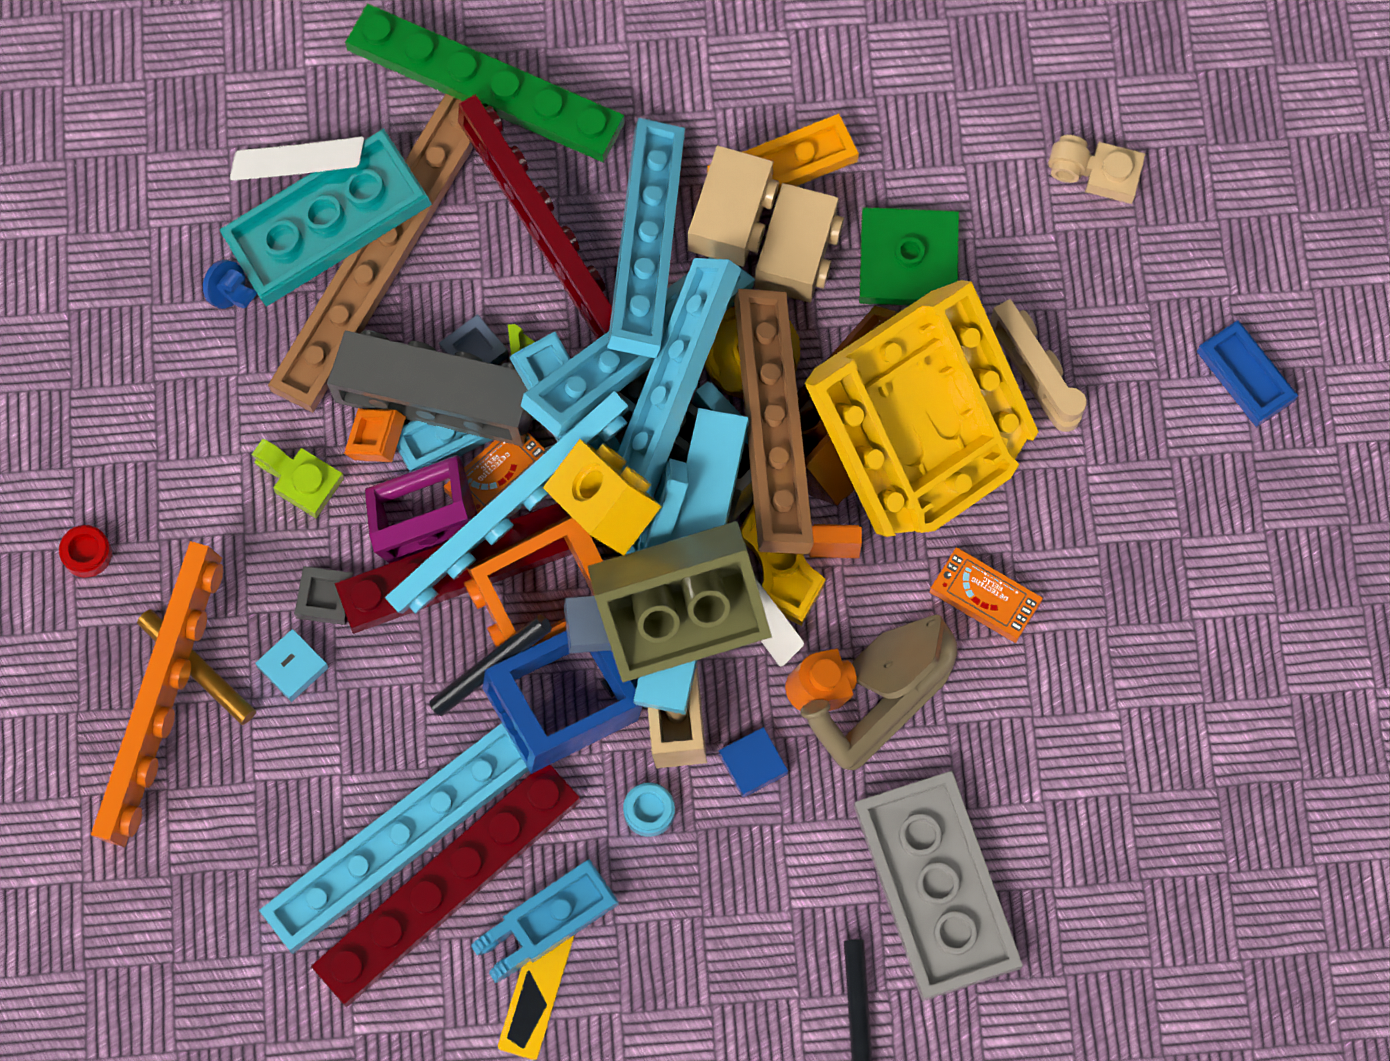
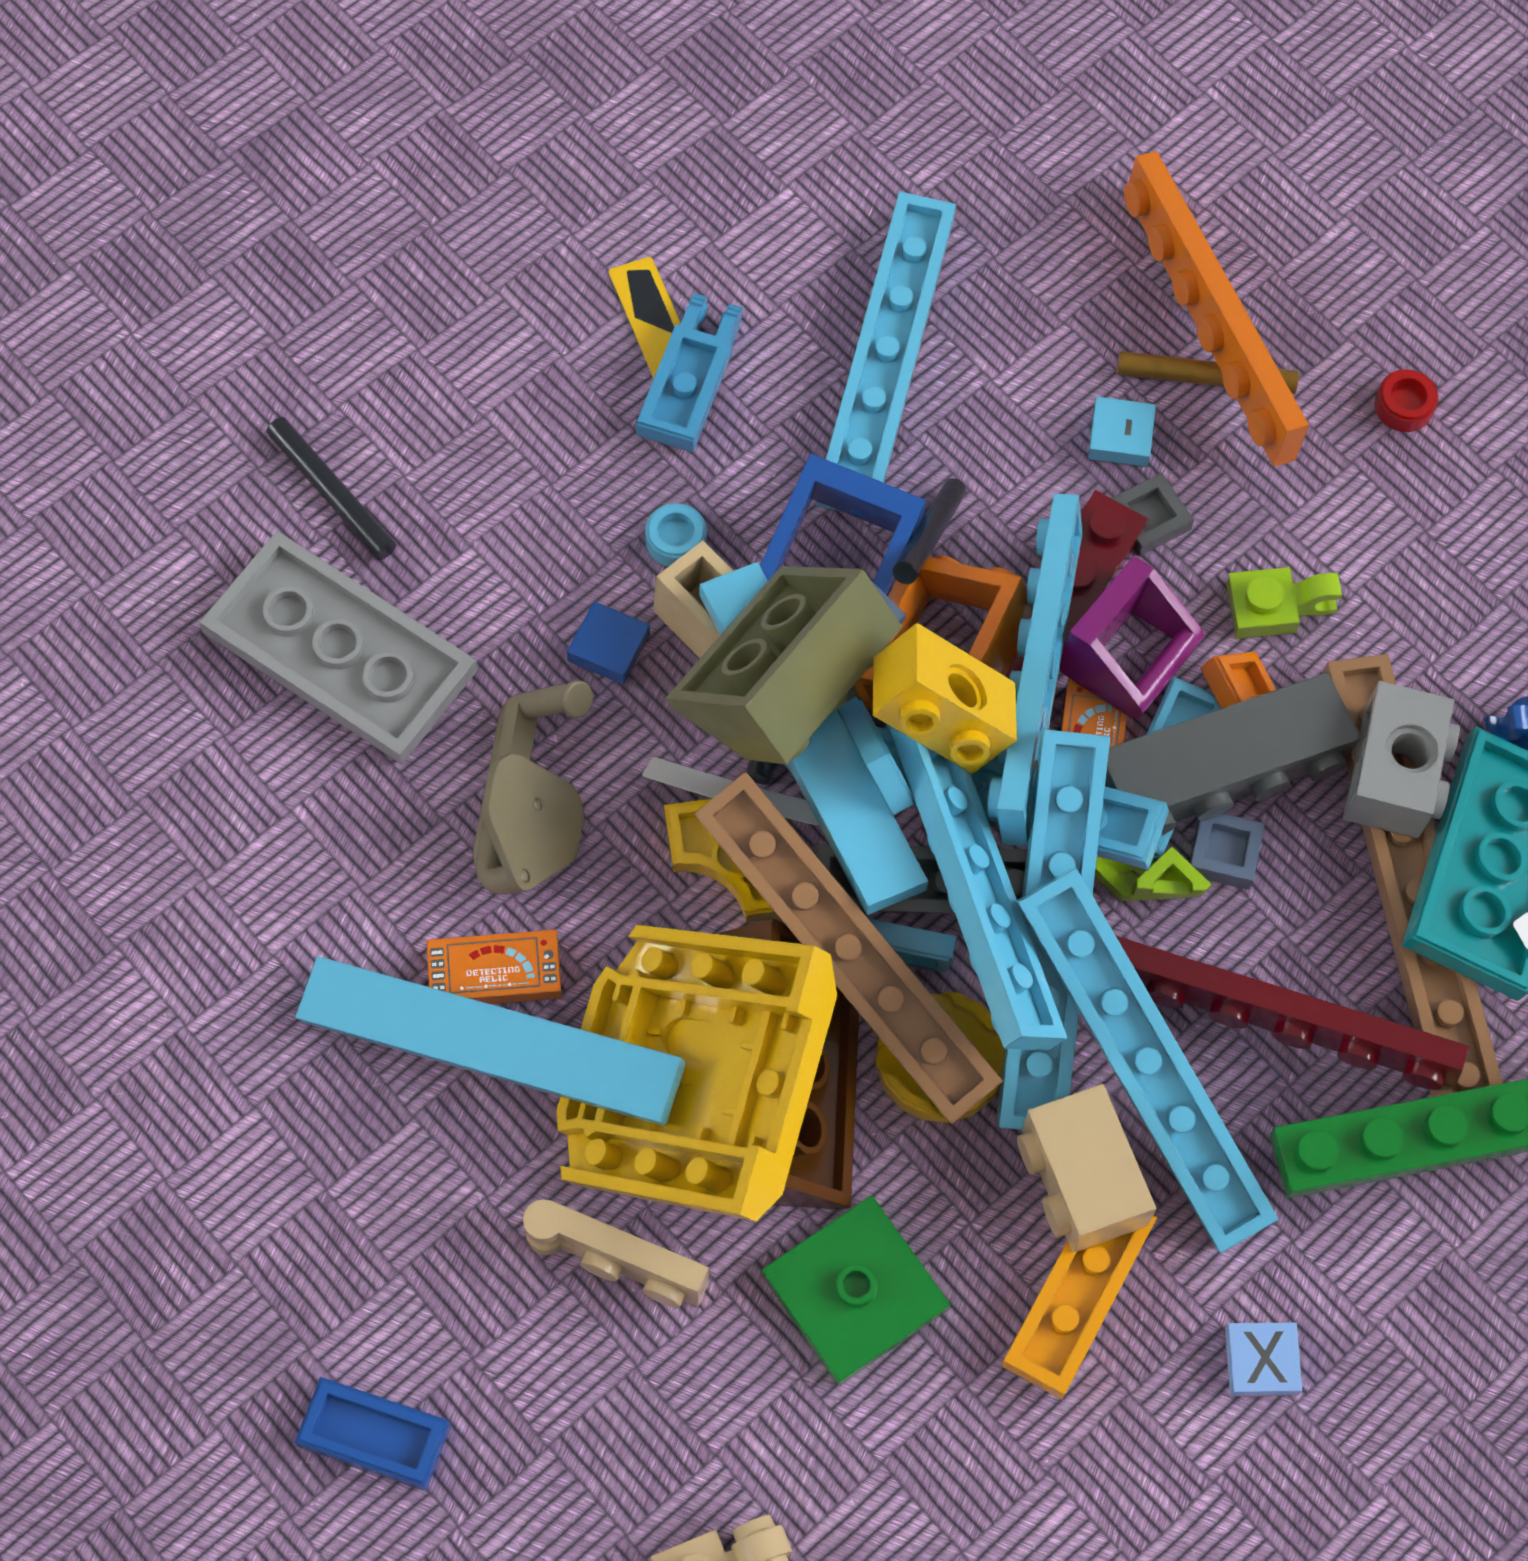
camera: 140 degrees right, 5 degrees down
(320, 326) = (1381, 789): none -> light grey brick
(445, 884) = (810, 345): dark red plate -> none
(707, 63) = (1263, 1359): none -> light blue tile
(798, 242) = (986, 1204): tan brick -> none
(821, 678) = (597, 752): orange plate -> none
(836, 541) = (692, 901): orange tile -> none
(1028, 536) = (492, 1041): none -> medium azure tile

